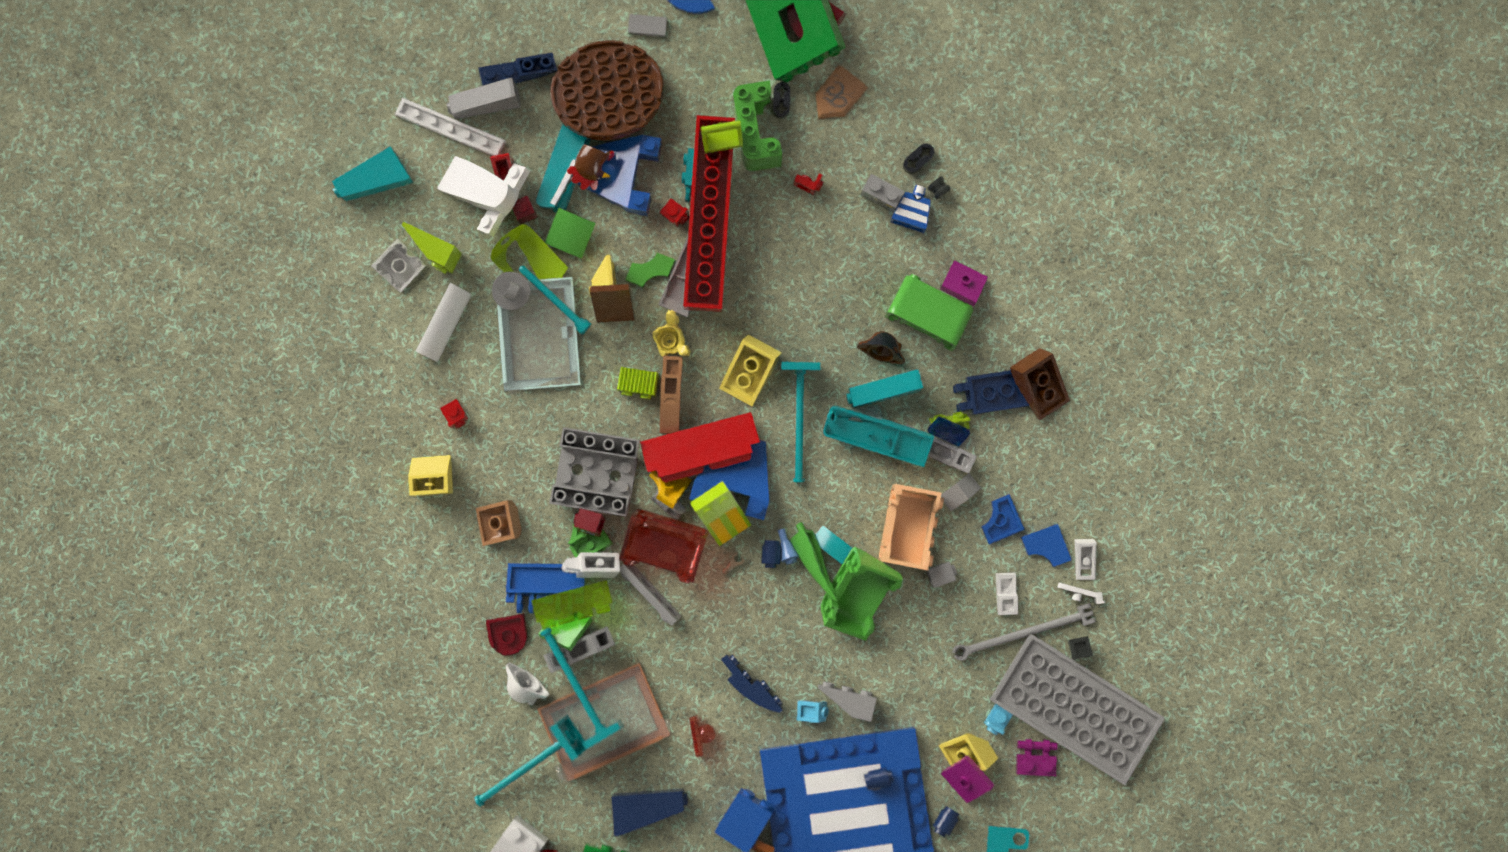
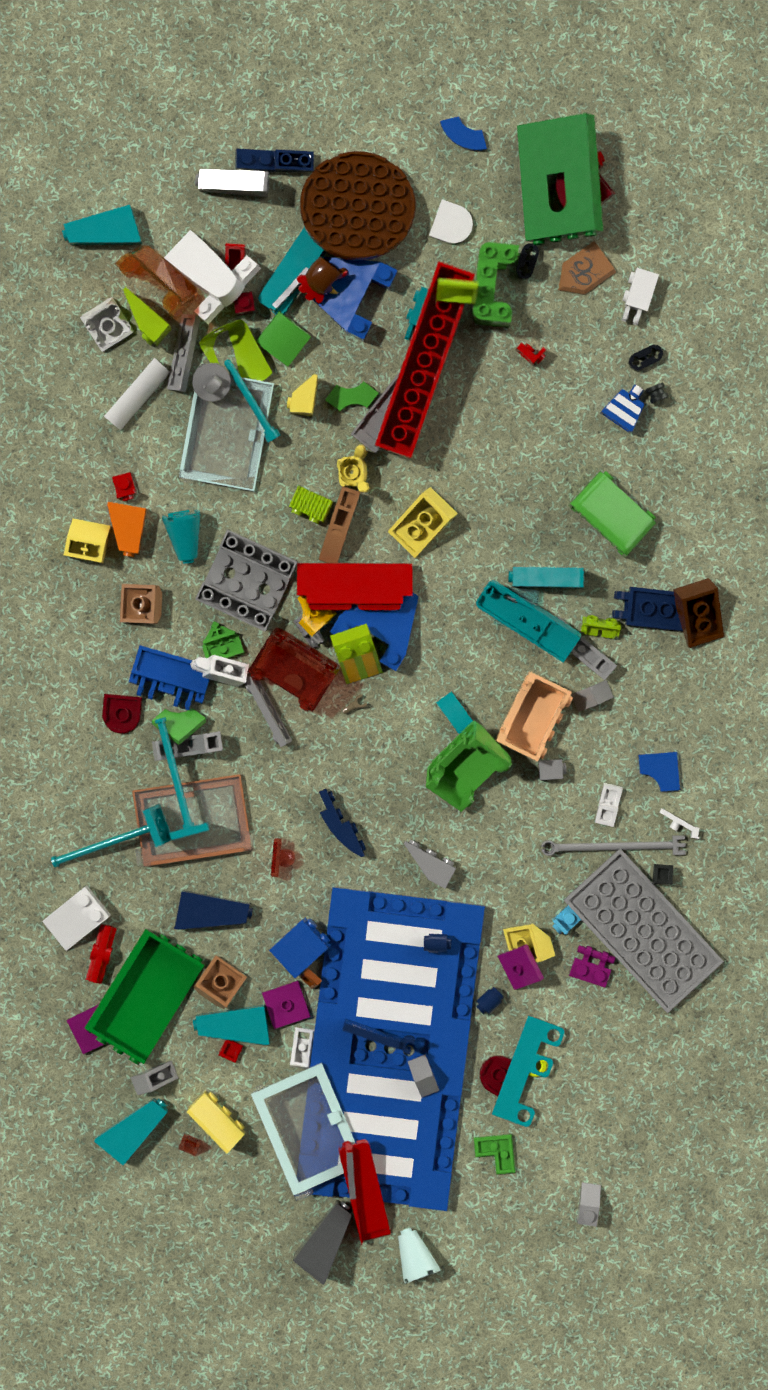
camera: 20 degrees right, 5 degrees up
(450, 127) = (192, 199): white tile -> none
(458, 217) = (181, 291): none -> clear orange windscreen
(467, 451) = (128, 527): none -> orange slope
(478, 271) = (183, 352): none -> light grey plate
(523, 443) = (184, 533): none -> teal cone
(523, 685) = (124, 765): white hat -> none
(576, 600) = (192, 698): clear neon green windscreen -> none
(589, 522) = (228, 627): dark red brick -> none
(612, 303) = (306, 422): reddish brown tile -> none
(647, 25) = (415, 148): light grey tile -> none
(675, 213) = (391, 346): red bracket -> none
(700, 84) = (451, 223): none -> white tile
(771, 553) = (394, 705): dark blue brick -> none
(788, 552) = (410, 708): medium blue cone -> none
(799, 369) = (471, 535): teal tile -> none
(811, 556) = (431, 715): bright green piece -> none
(812, 711) = (392, 864): medium azure bracket -> none
(882, 193) = (599, 383): light grey brick -> none
(885, 345) = (559, 533): reddish brown hat -> none
(896, 100) = (639, 294): none -> white hinge
(948, 431) = (597, 634): clear blue tile -> none
(963, 283) = (653, 494): magenta plate -> none
(1003, 520) = (625, 735): blue tile -> none
(1085, 558) = (694, 791): white slope -> none

